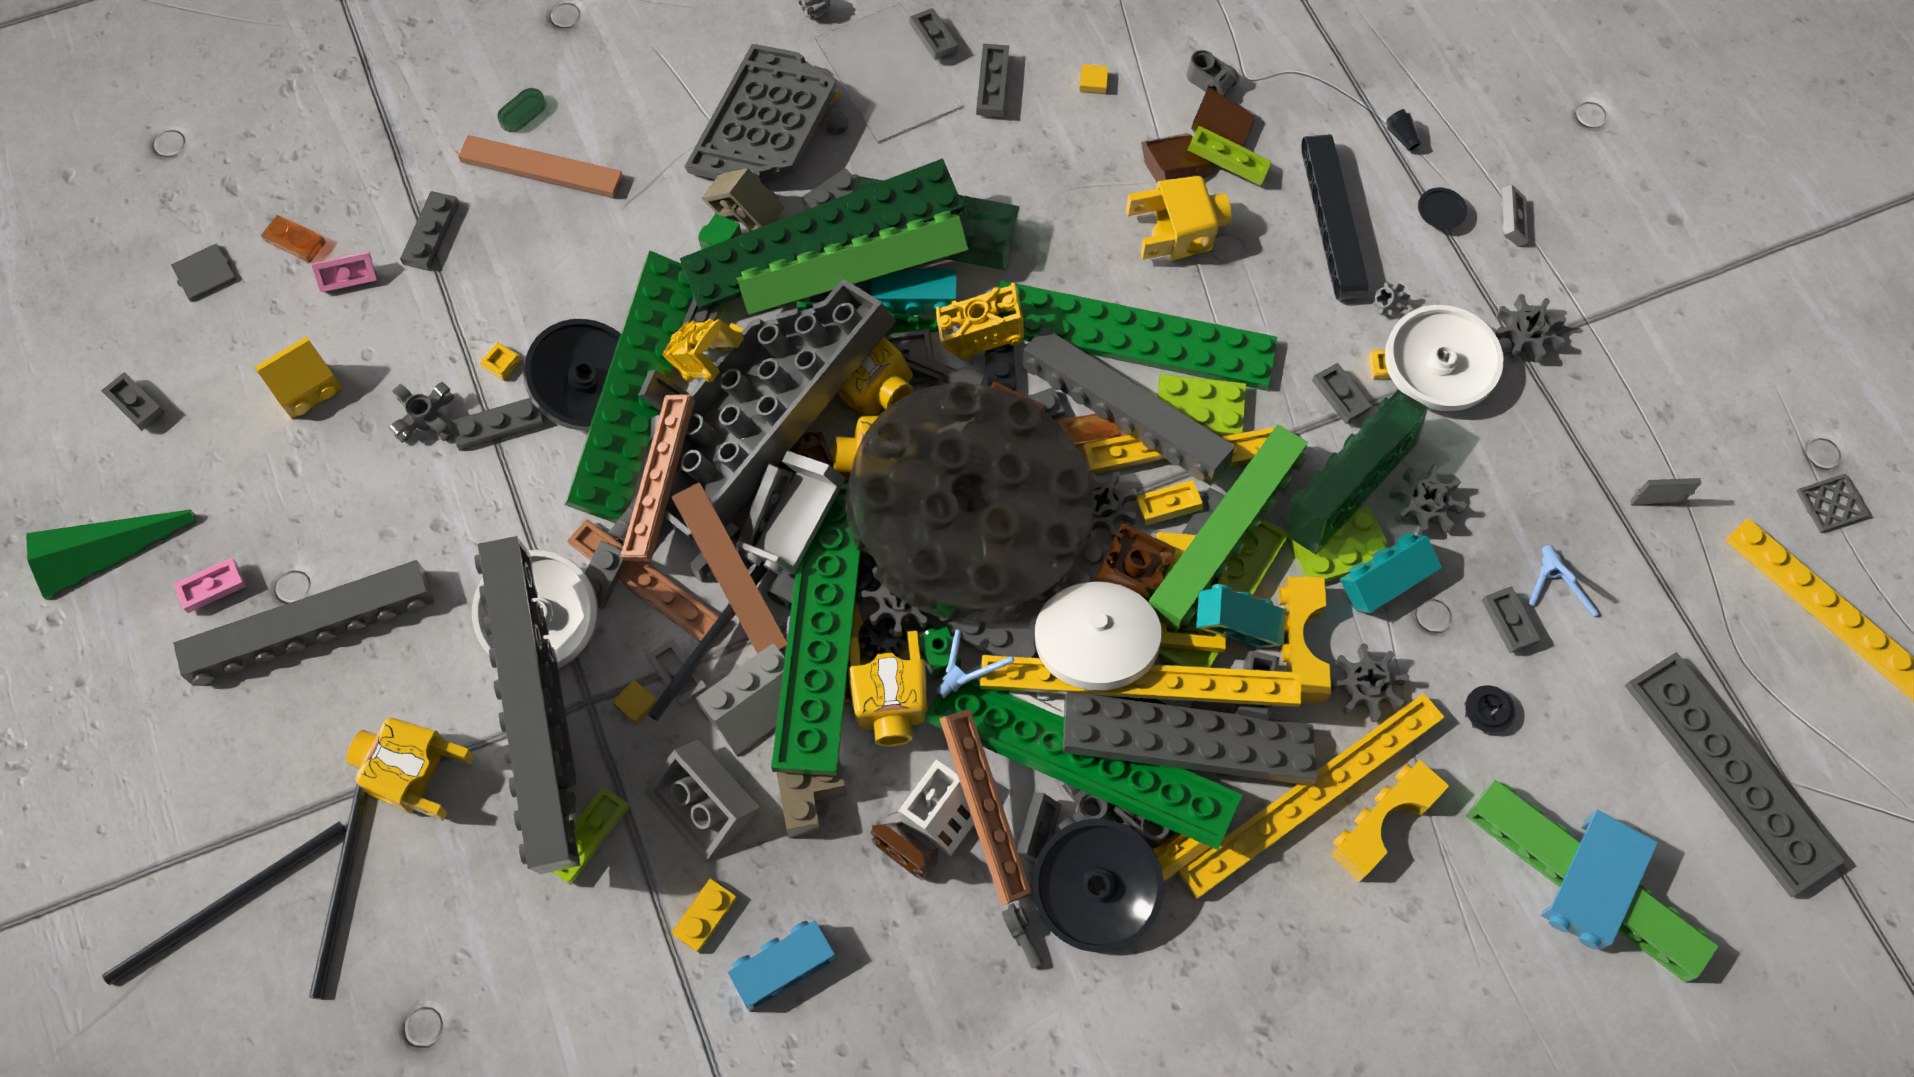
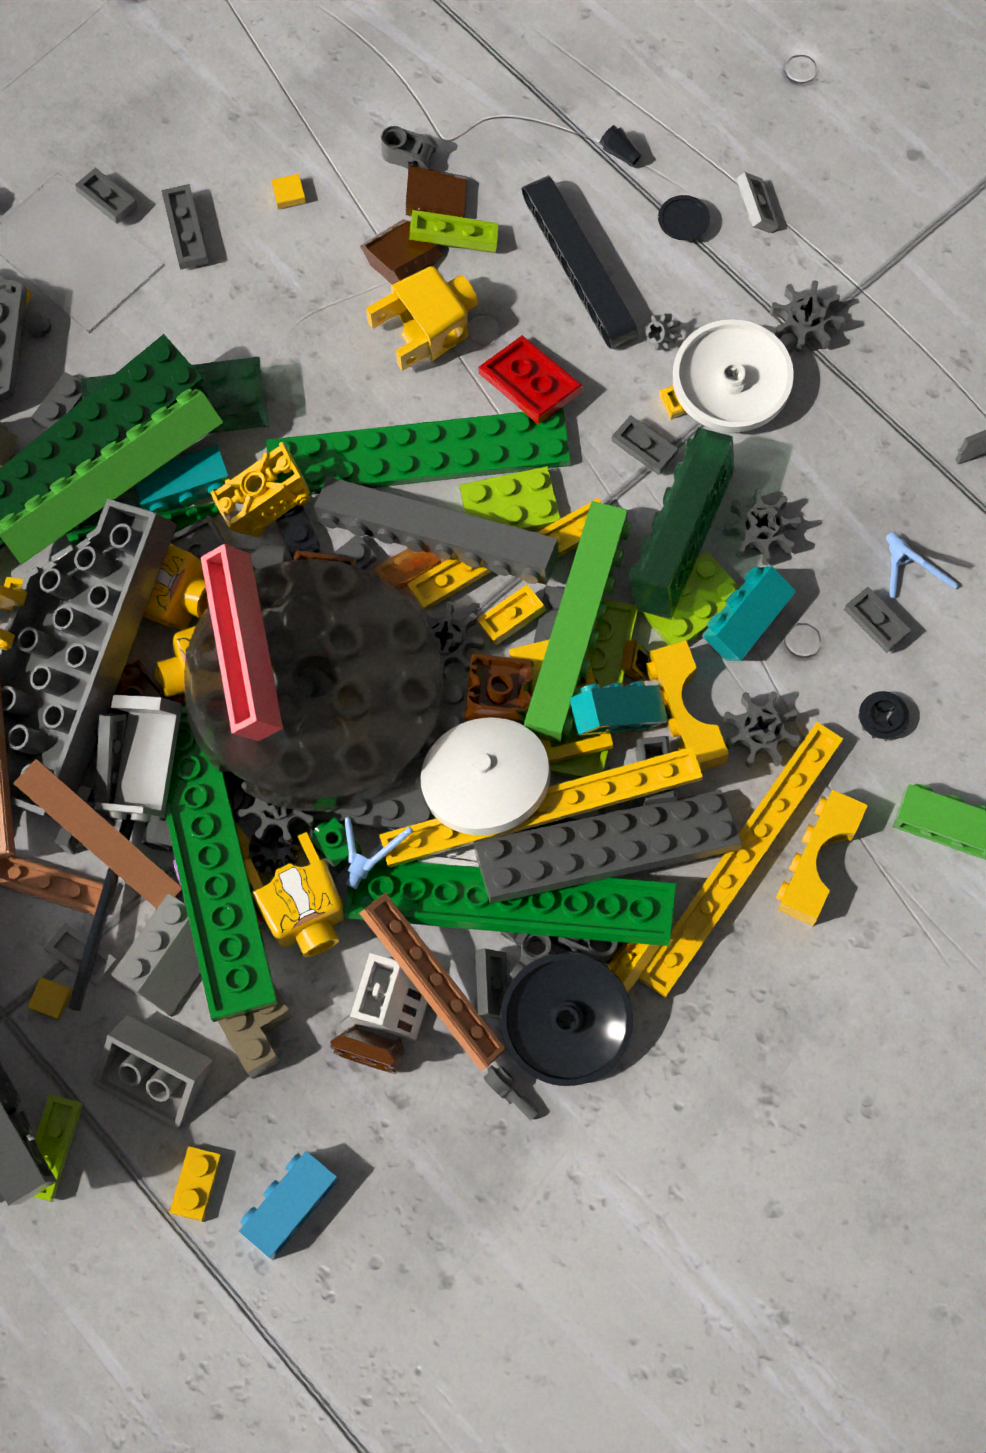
camera: 15 degrees left, 5 degrees up
(917, 439) = (241, 643): none -> coral brick
(1256, 303) = (530, 379): none -> red tile
(1269, 580) = (634, 660): none -> dark brown tile

